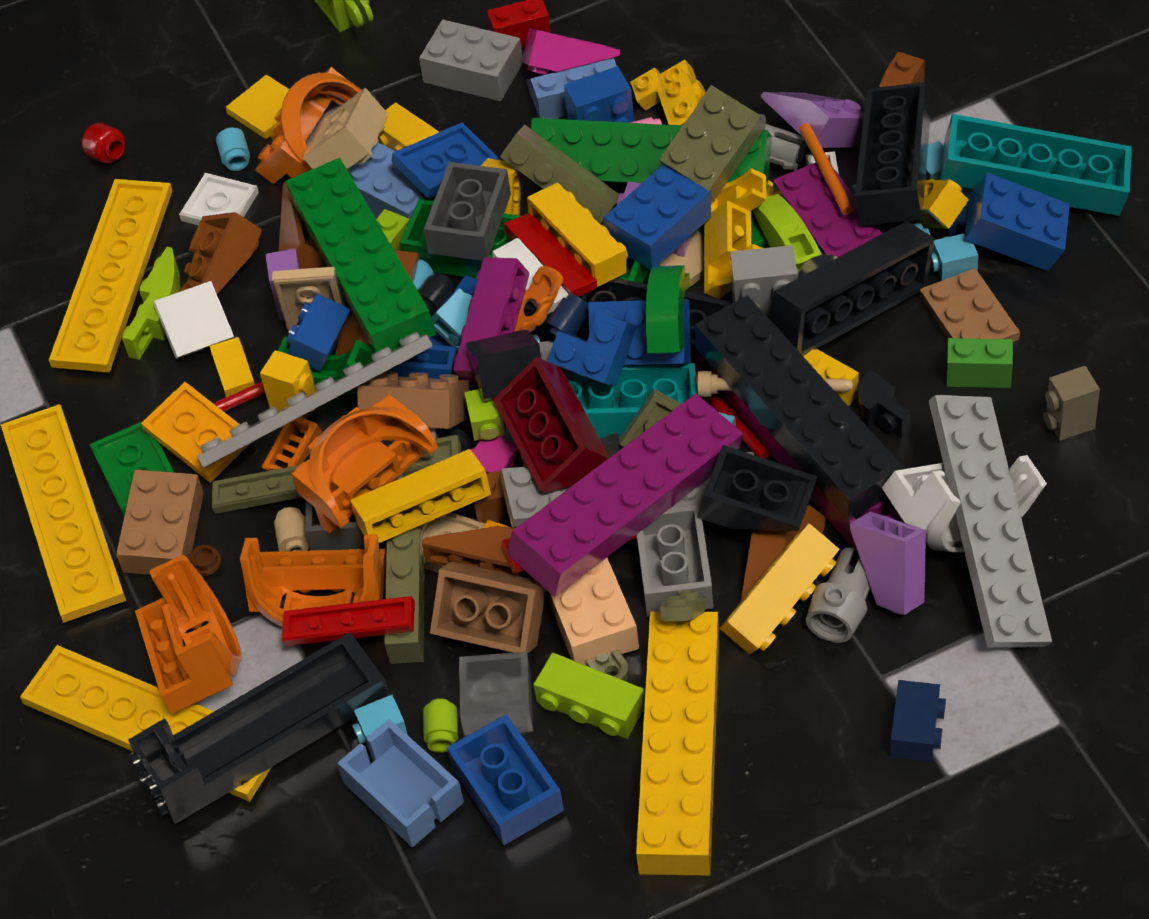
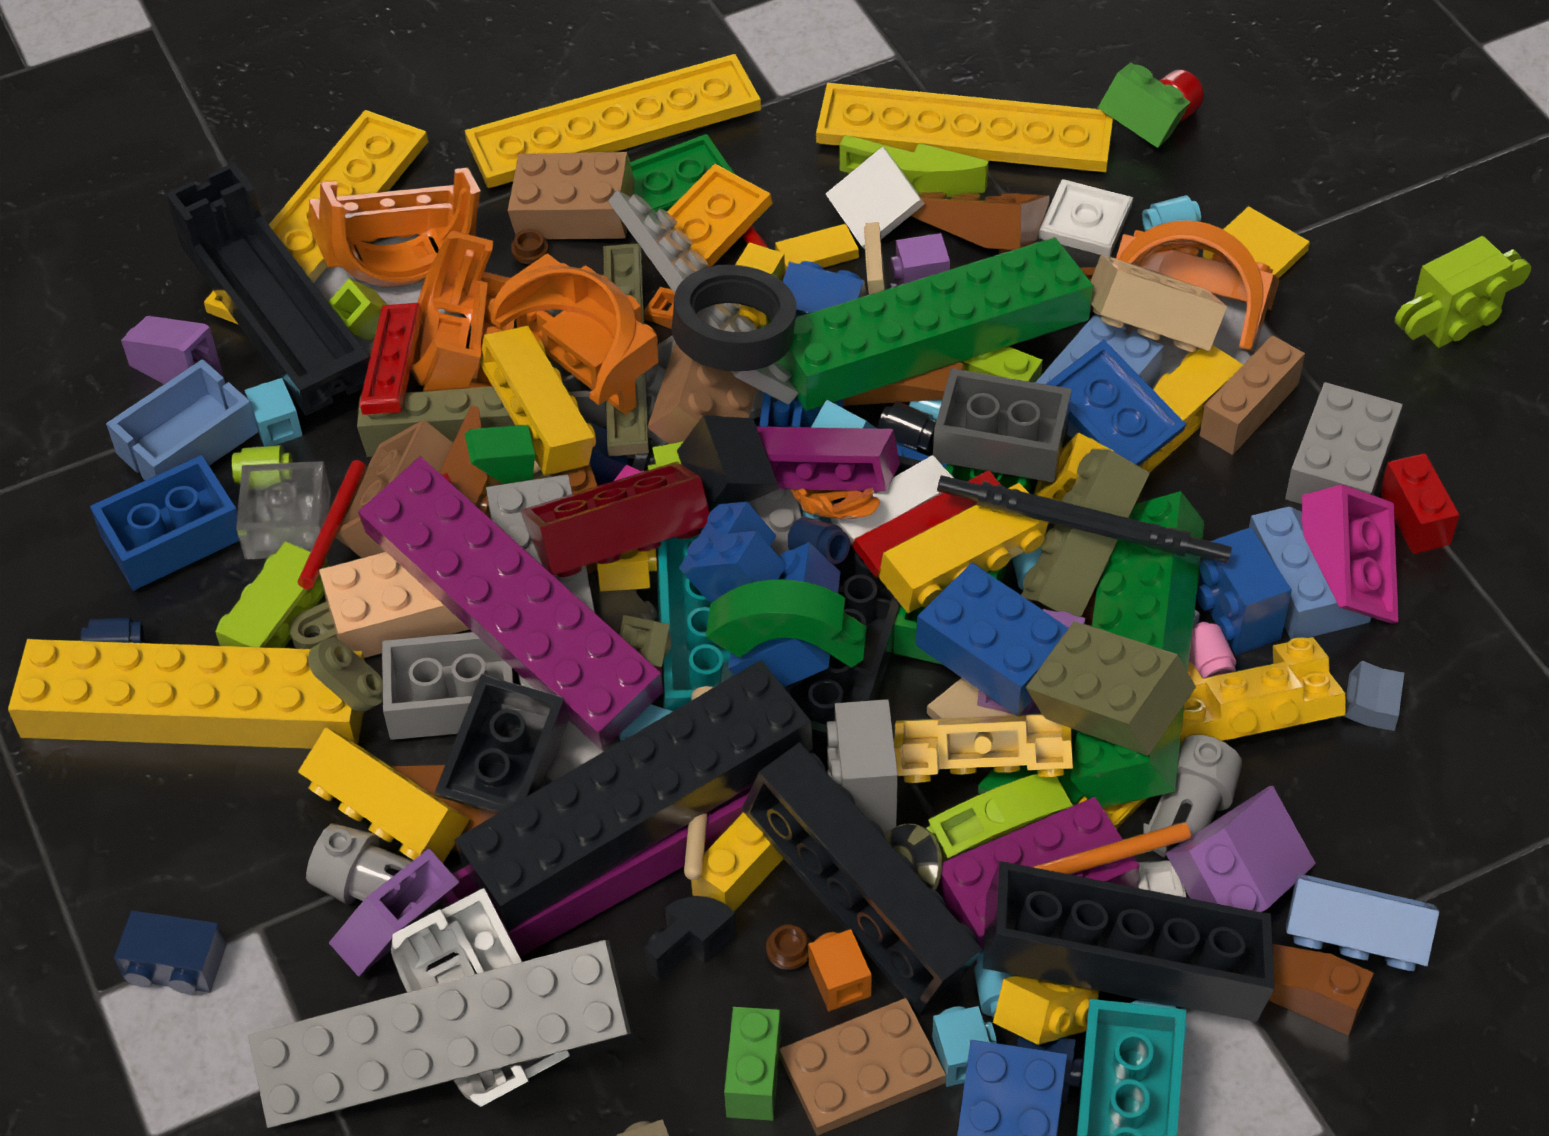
camera: 85 degrees right, 0 degrees up
(119, 153) = (1144, 104): none -> bright green brick
(274, 661) = (358, 308): none -> lime brick
(311, 805) = (169, 347): none -> medium lavender slope
(393, 364) = (733, 349): none -> black tyre
(416, 98) = (1252, 394): none -> medium nougat brick
(475, 507) = (502, 452): none -> green slope
(533, 650) = (331, 525): none -> red bar
(565, 160) = (1085, 519): none -> black axle
(619, 810) = (114, 630): none -> dark blue brick
(673, 52) = (1374, 696): none -> sand blue piece
(860, 55) = (1361, 922): none -> medium blue piece
(883, 354) = (788, 947): none -> reddish brown plate
(902, 322) = (839, 969): none -> orange brick

